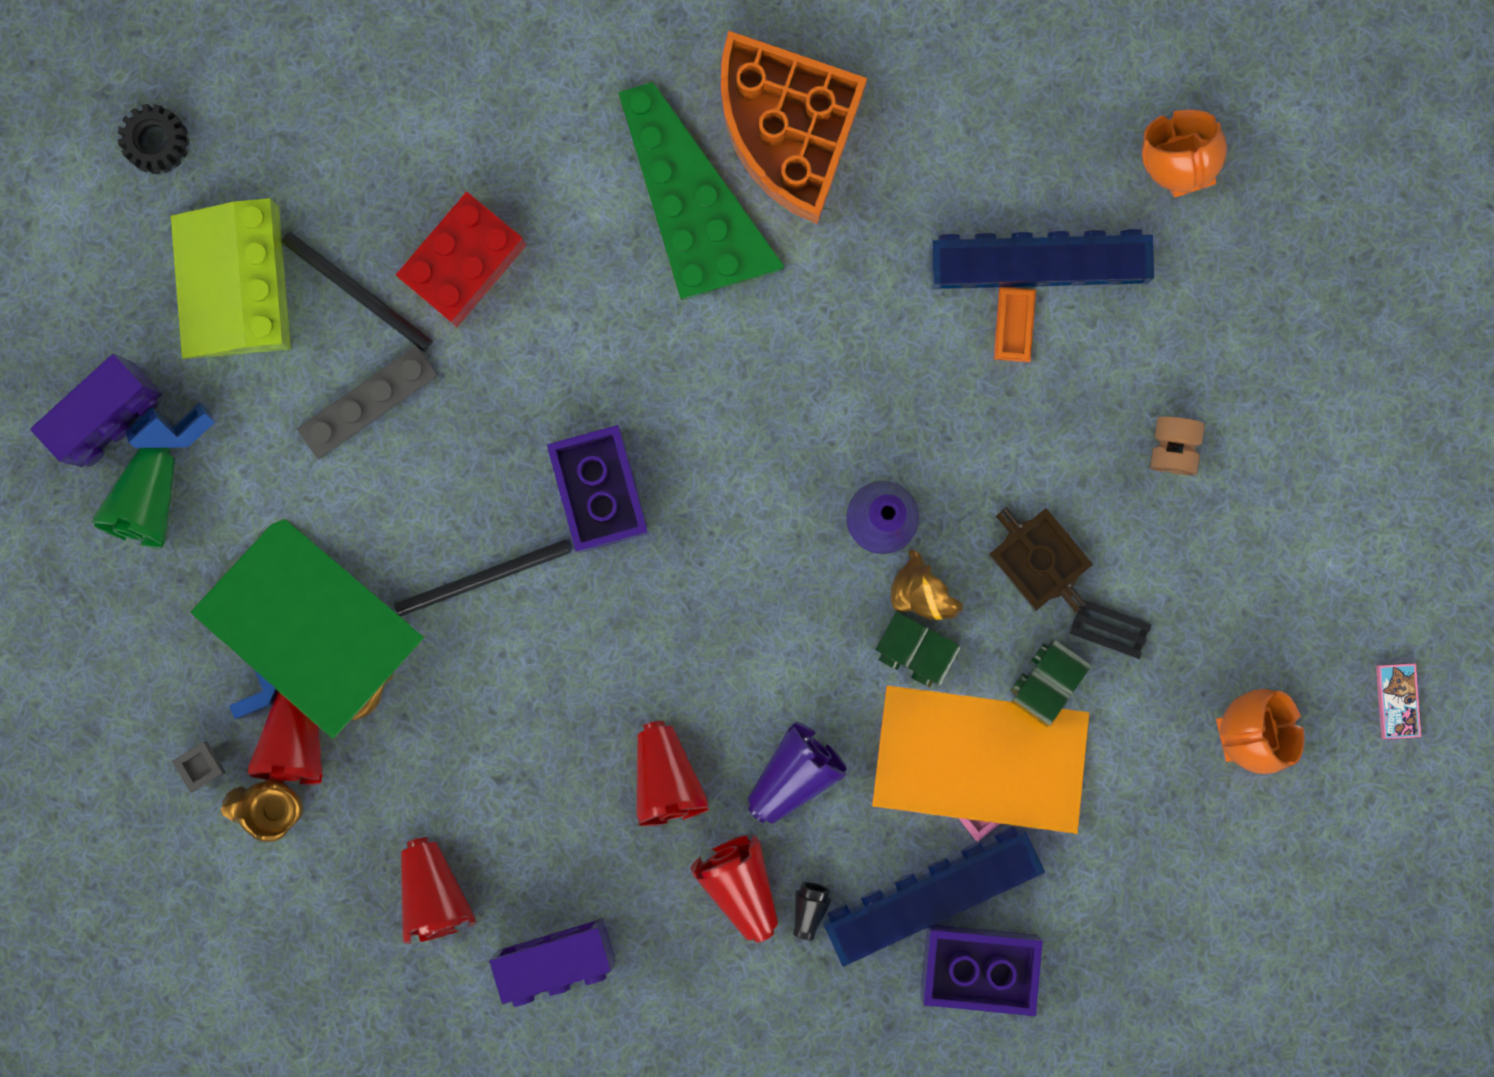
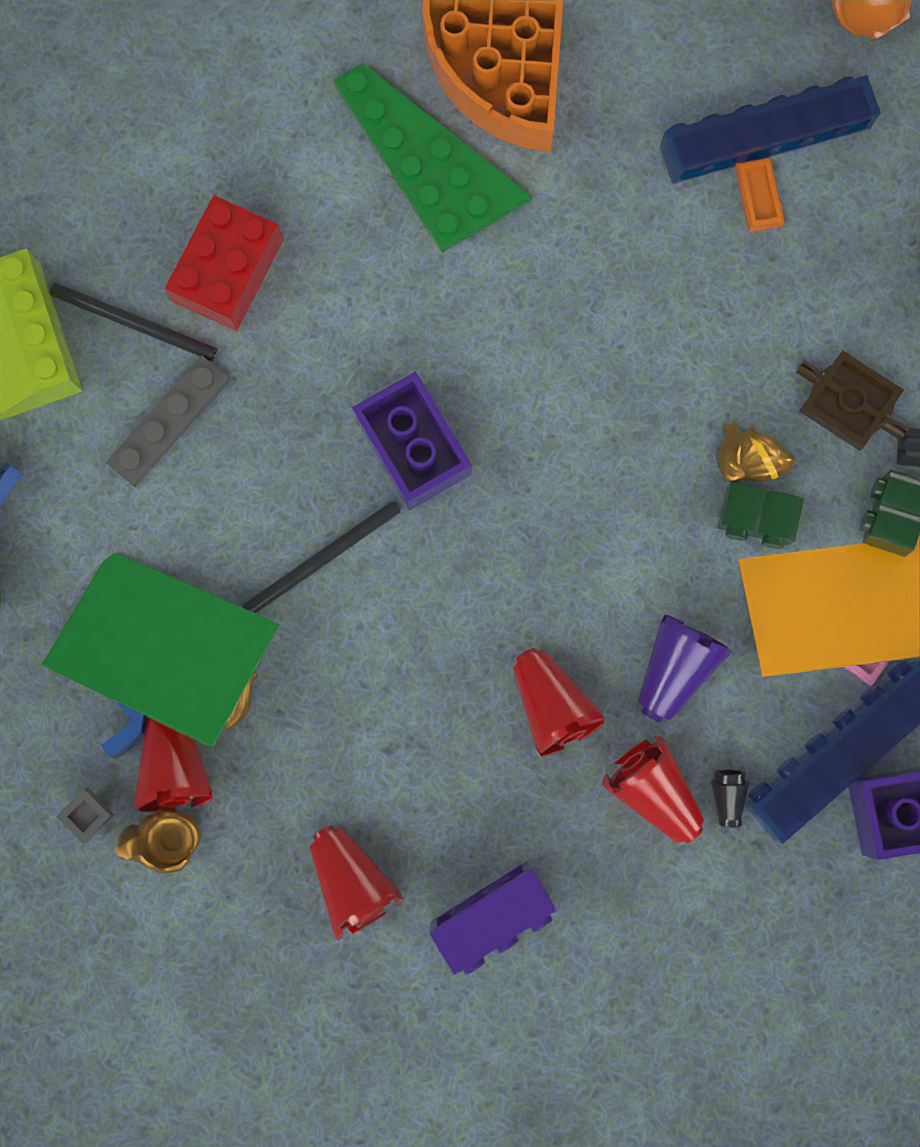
camera: 20 degrees left, 5 degrees down
(868, 525) = (690, 399): dark purple cone -> none

